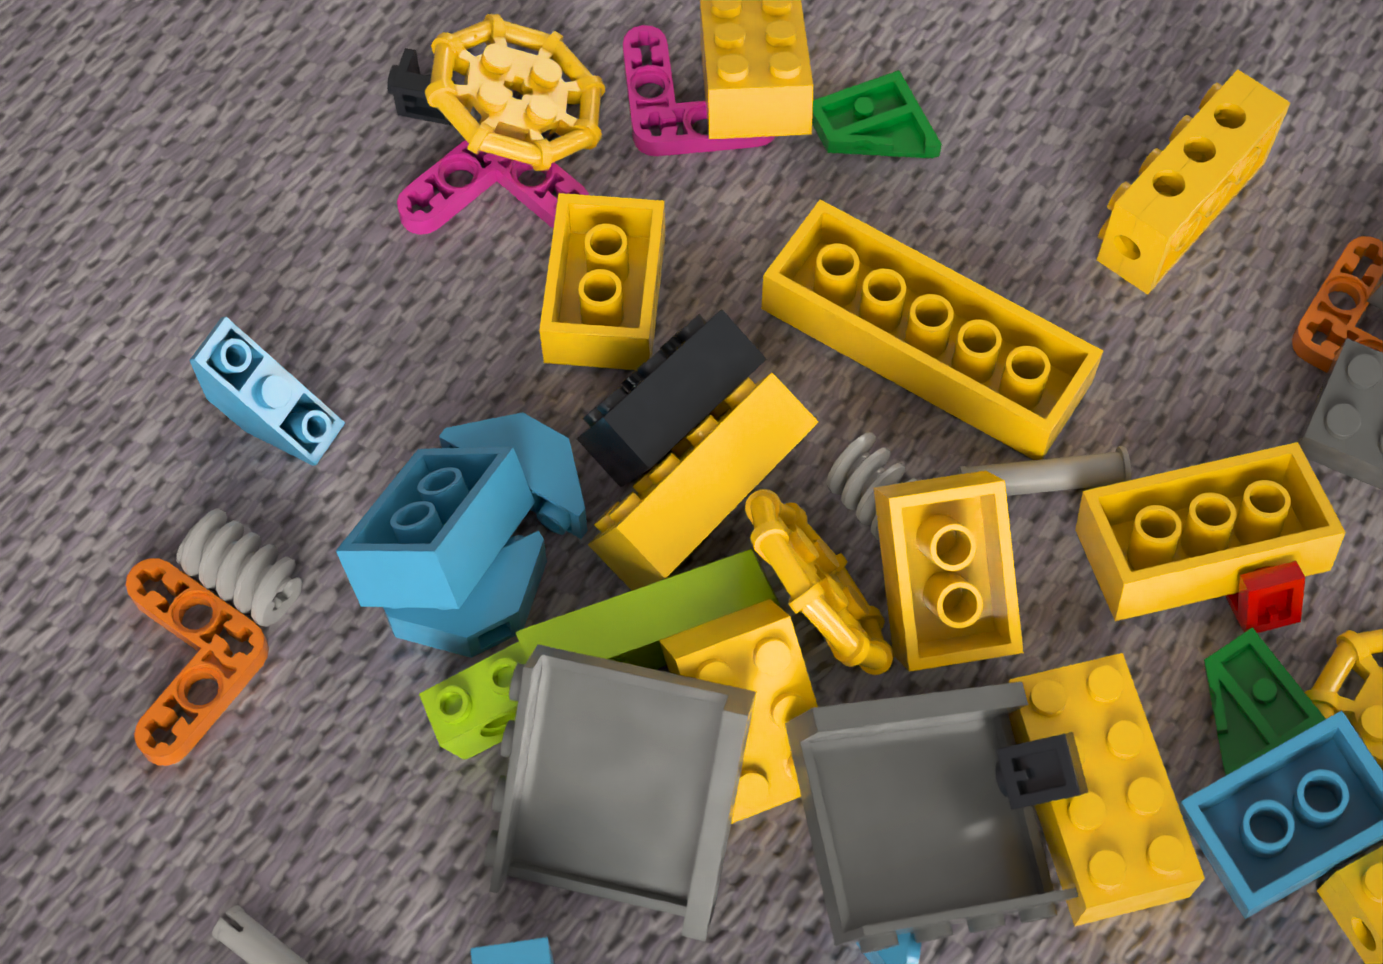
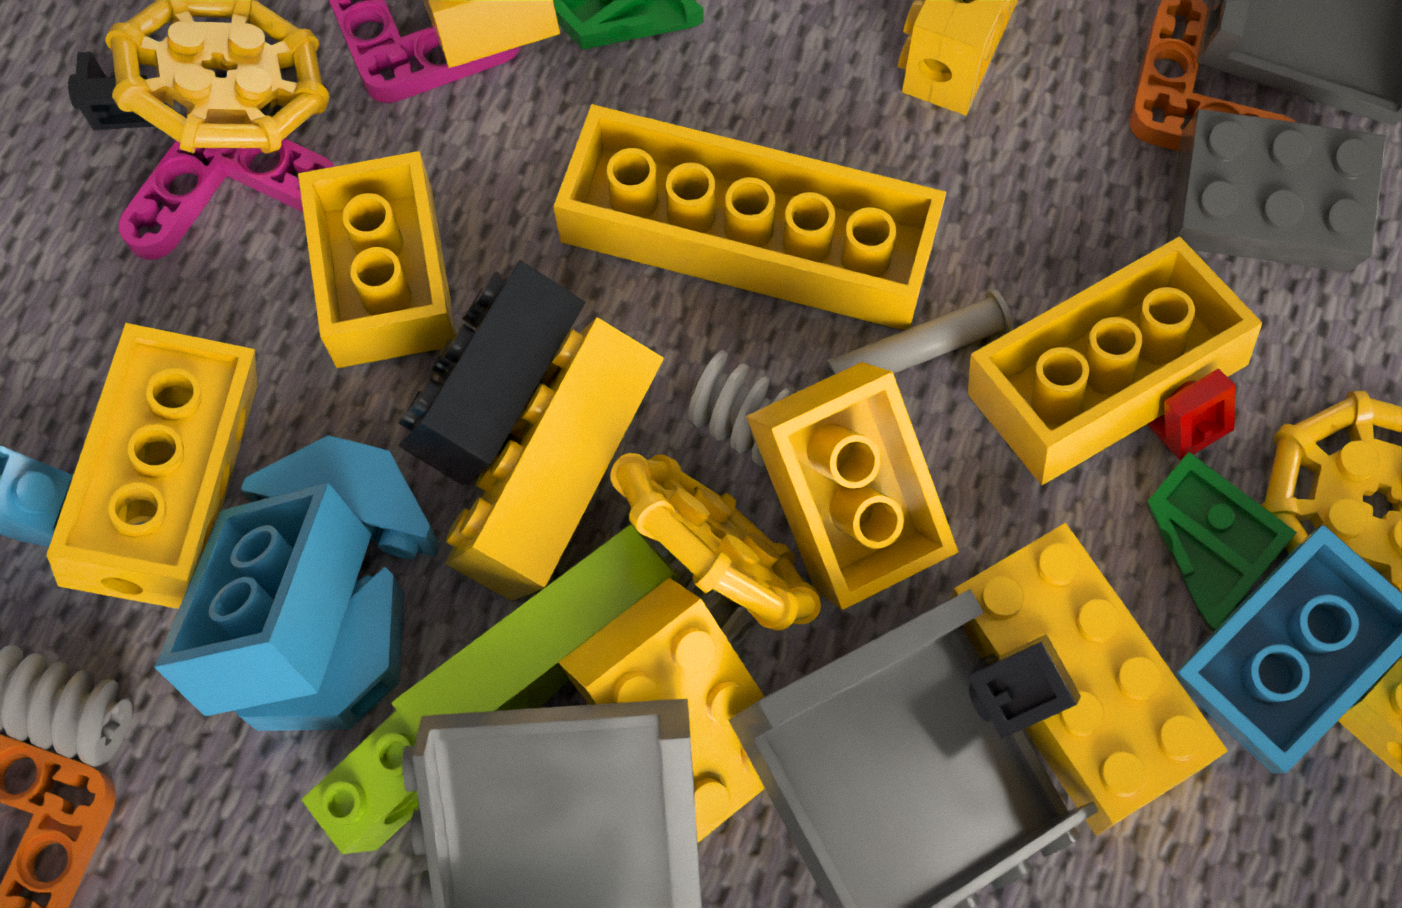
camera: 15 degrees left, 5 degrees up
(376, 398) = (157, 457): none -> yellow brick

